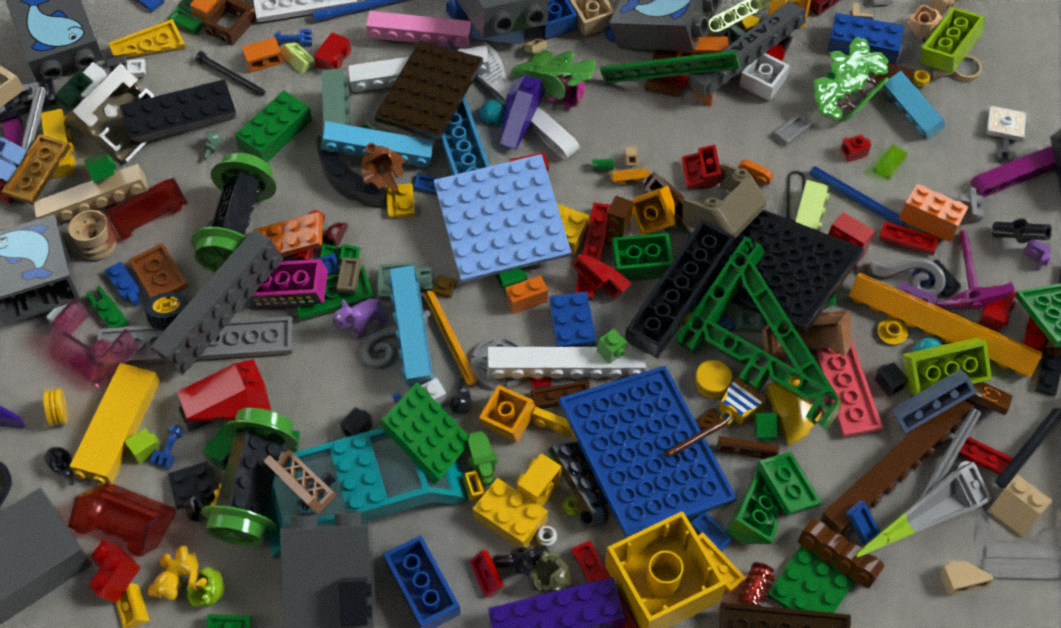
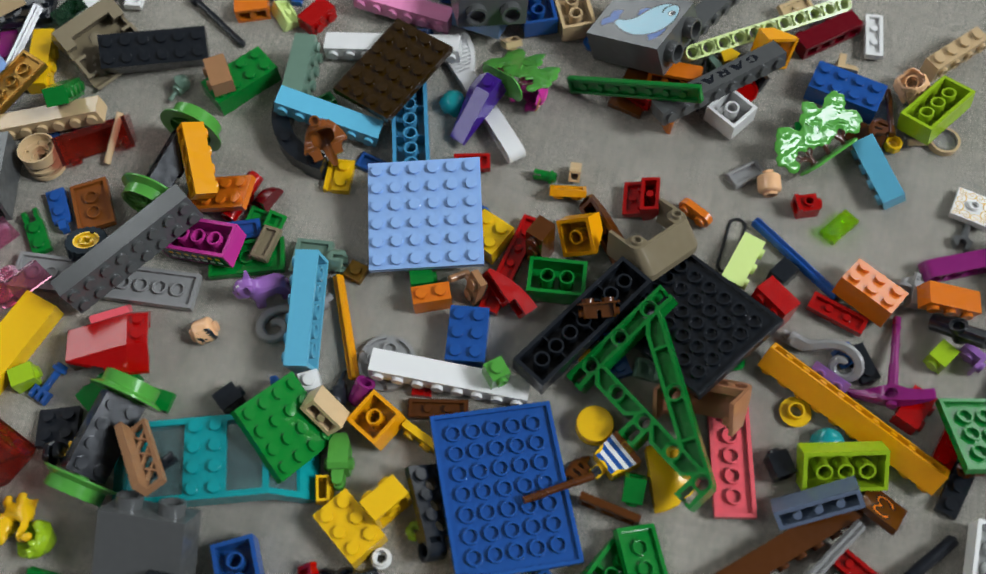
camera: 15 degrees right, 5 degrees up
(160, 204) = (113, 138): none -> tan bar
(211, 370) = (110, 313): none -> coral tile
(256, 123) = (219, 75): none -> medium nougat brick
(263, 205) = (197, 160): none -> light orange brick
(311, 367) = (204, 330): none -> light nougat head
(458, 412) = (324, 410): none -> tan brick
(484, 390) = (361, 389): none -> magenta brick
(567, 275) = (475, 285): none -> medium nougat plate
(700, 265) = (590, 308): none -> reddish brown hinge
(816, 133) = (769, 183): none -> light nougat head
(851, 207) = (784, 271): none -> black brick
(905, 63) = (882, 126): none -> reddish brown piece
(1005, 205) = (949, 300): none -> orange brick
(1009, 257) = (940, 356): none -> lime brick

